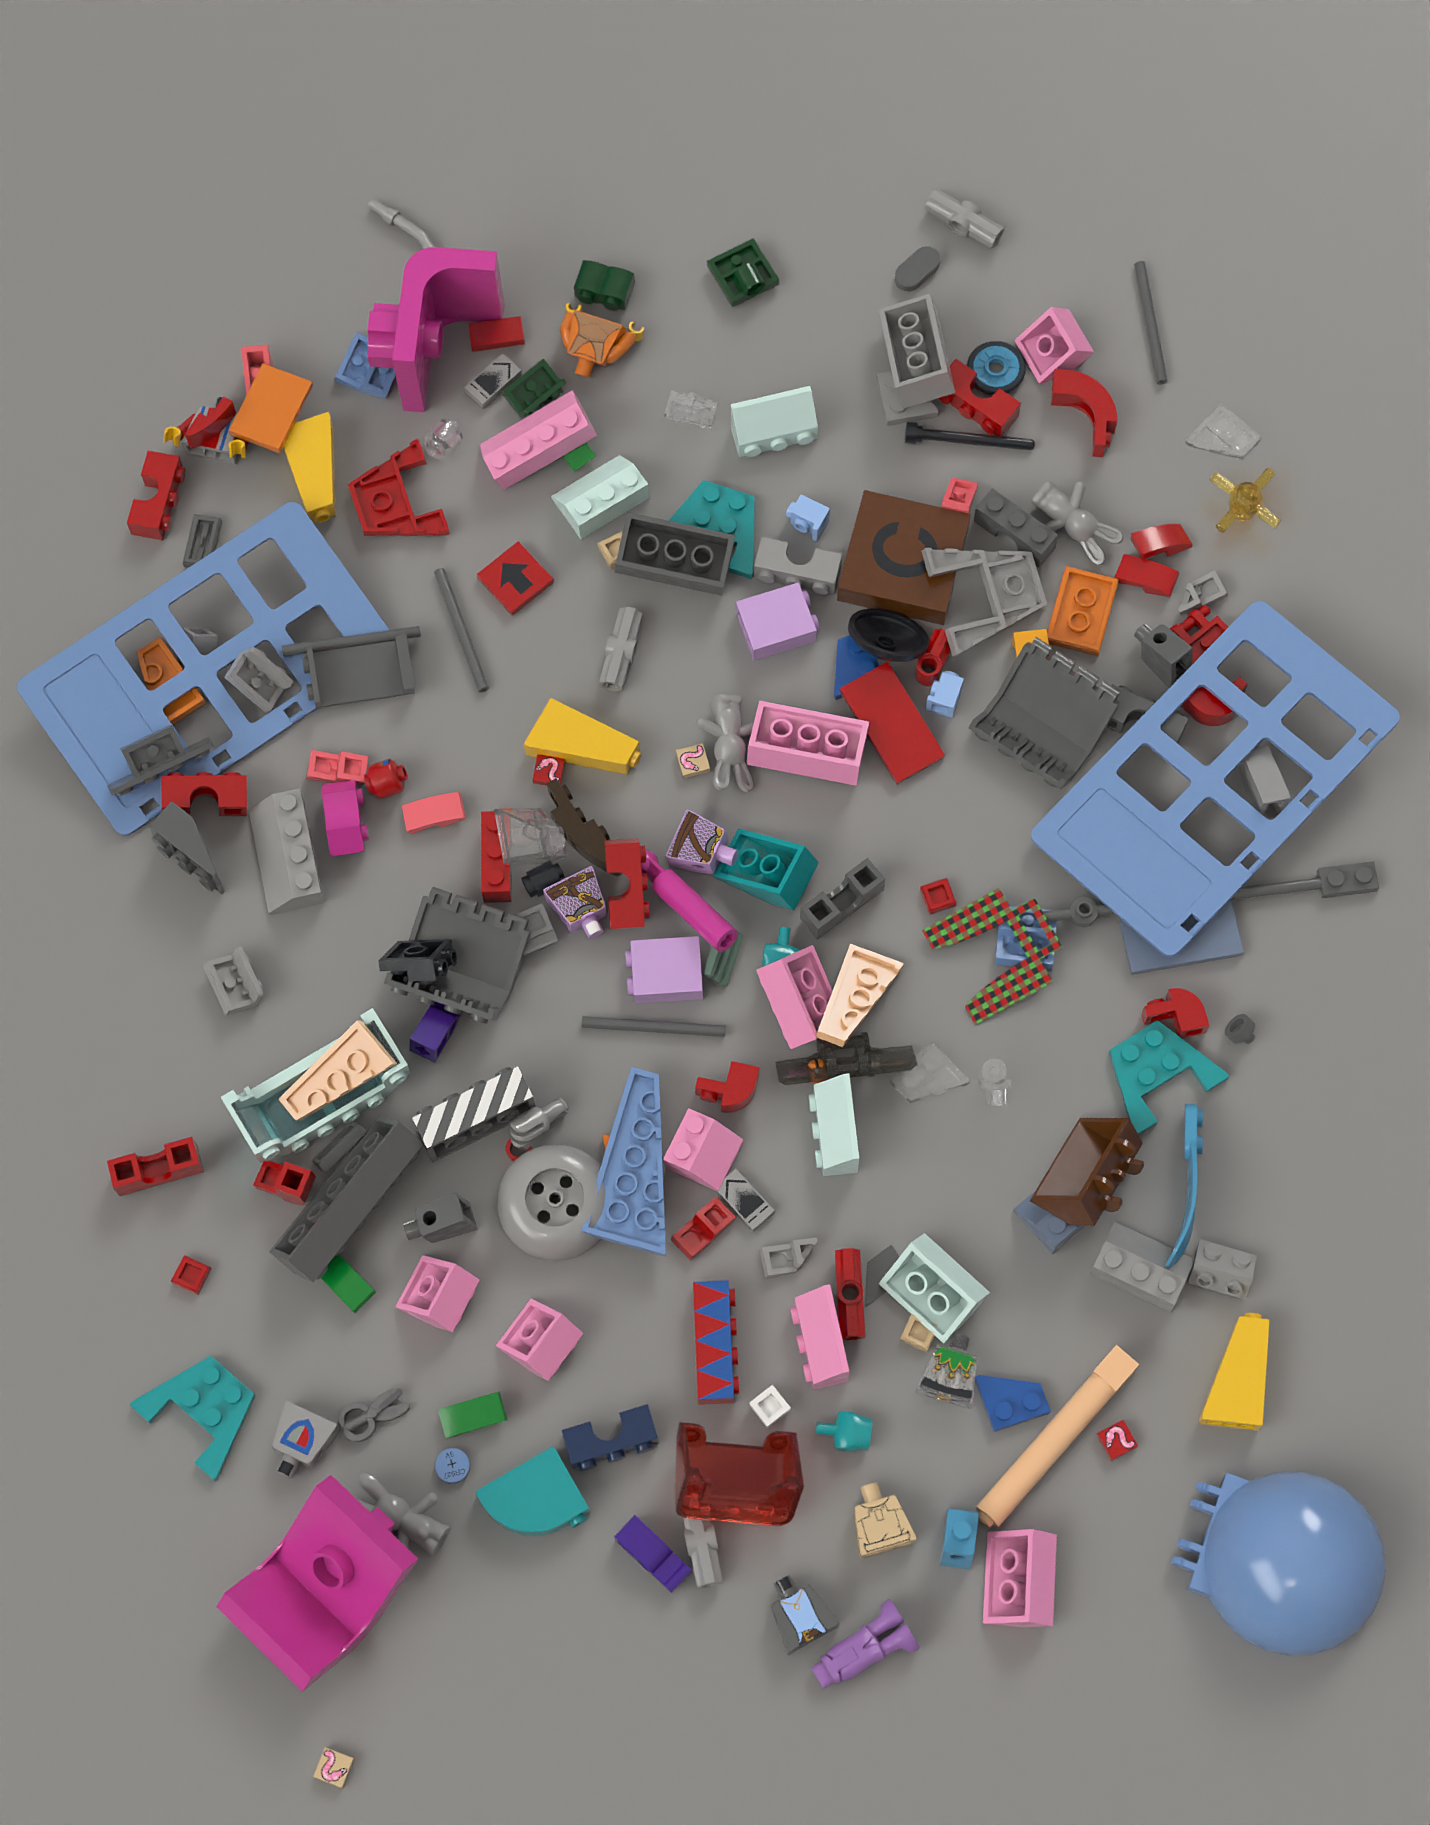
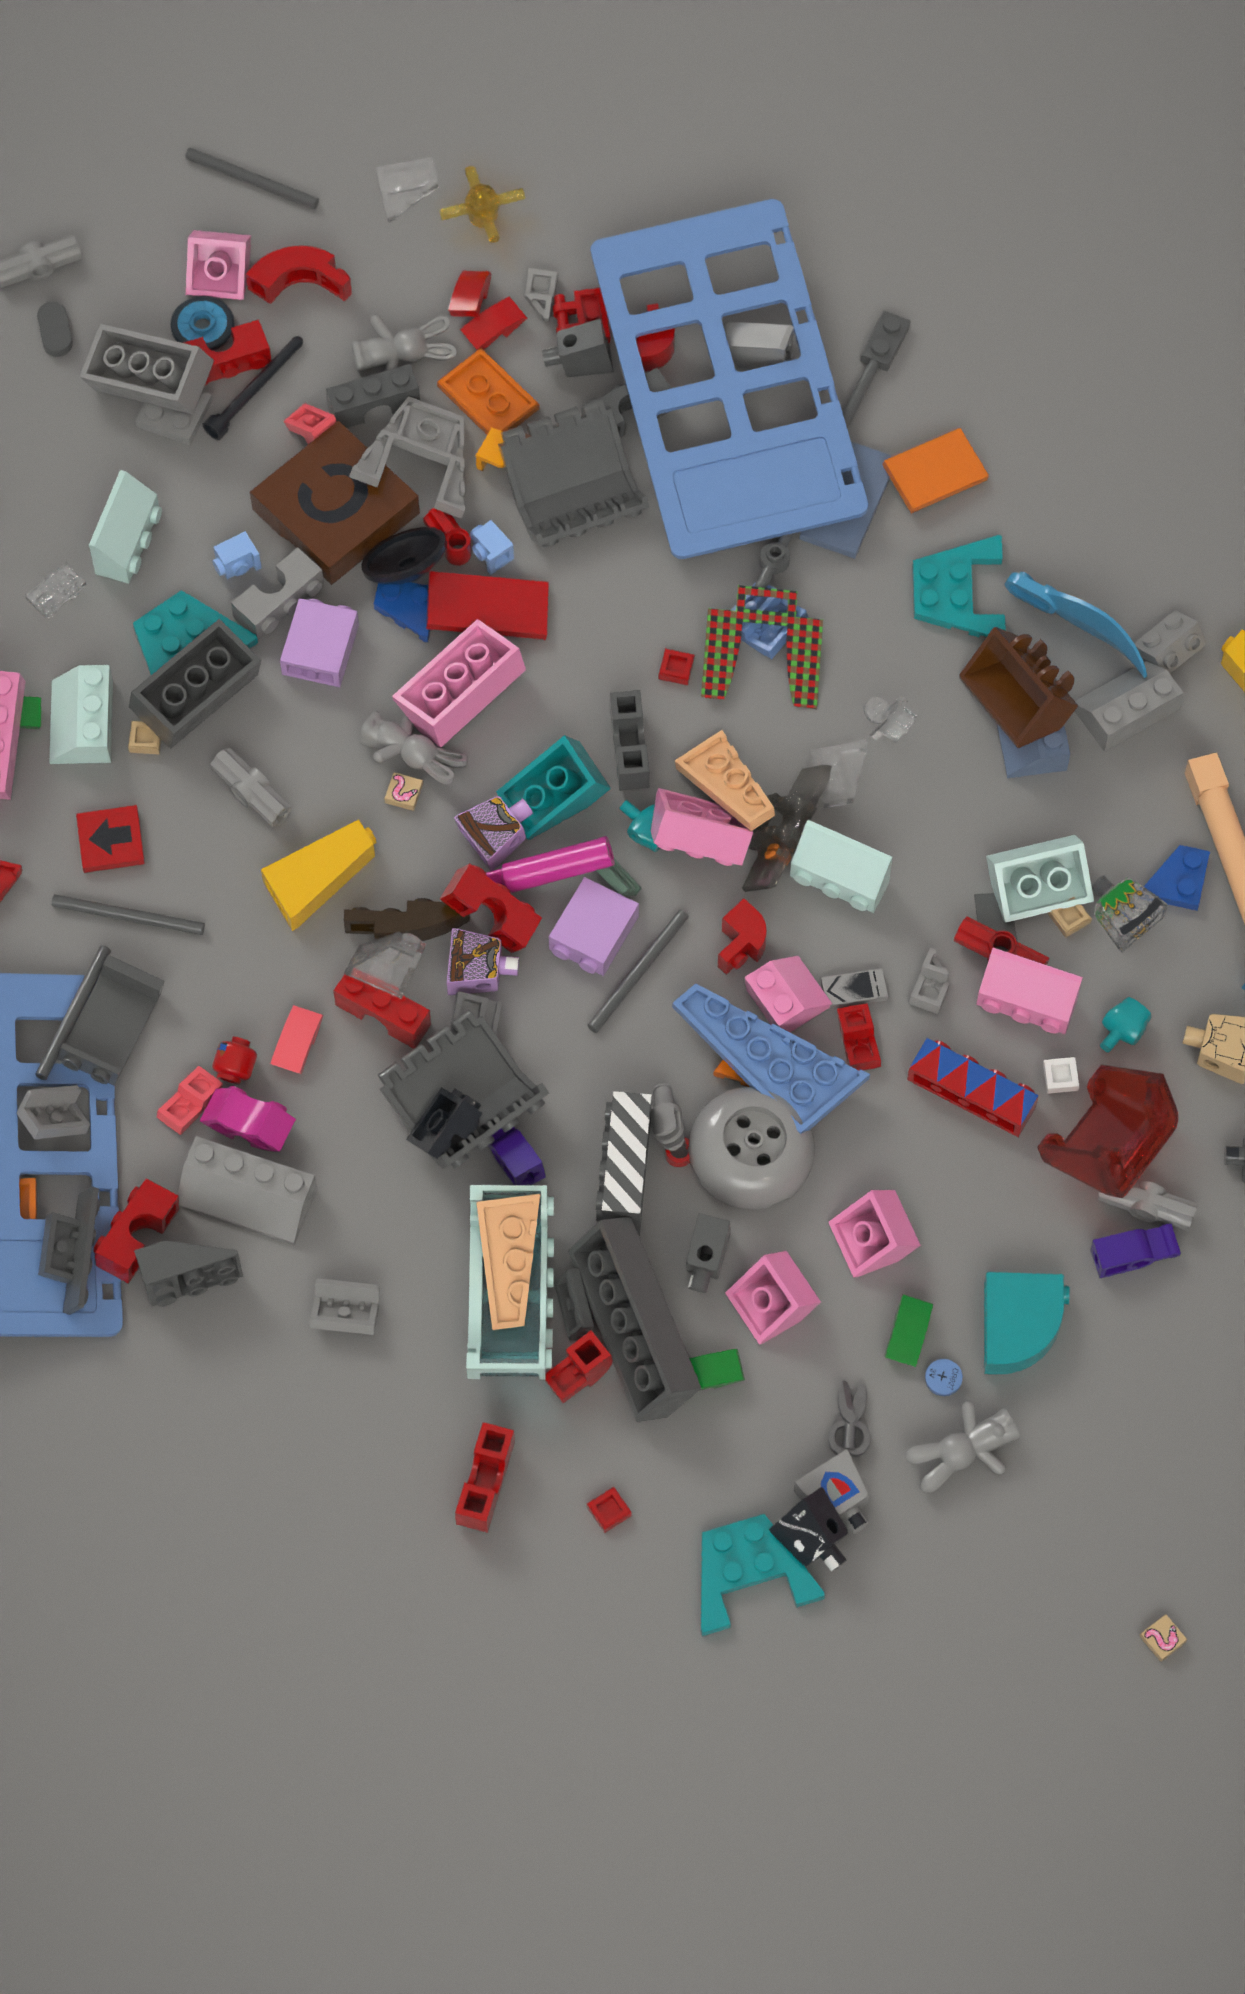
camera: 60 degrees left, 5 degrees down
(253, 1439) = (812, 1531): none -> black torso
(320, 1585) = (994, 1536): dark pink piece -> none
(541, 878) = (431, 981): black brick -> none
(547, 769) = (325, 918): red tile -> none
(587, 1449) = (1012, 1198): dark blue arch -> none
(1183, 1008) = (919, 533): red brick -> none
(1240, 1029) = (965, 501): dark grey tile -> none
(1252, 989) = (935, 470): none -> orange tile

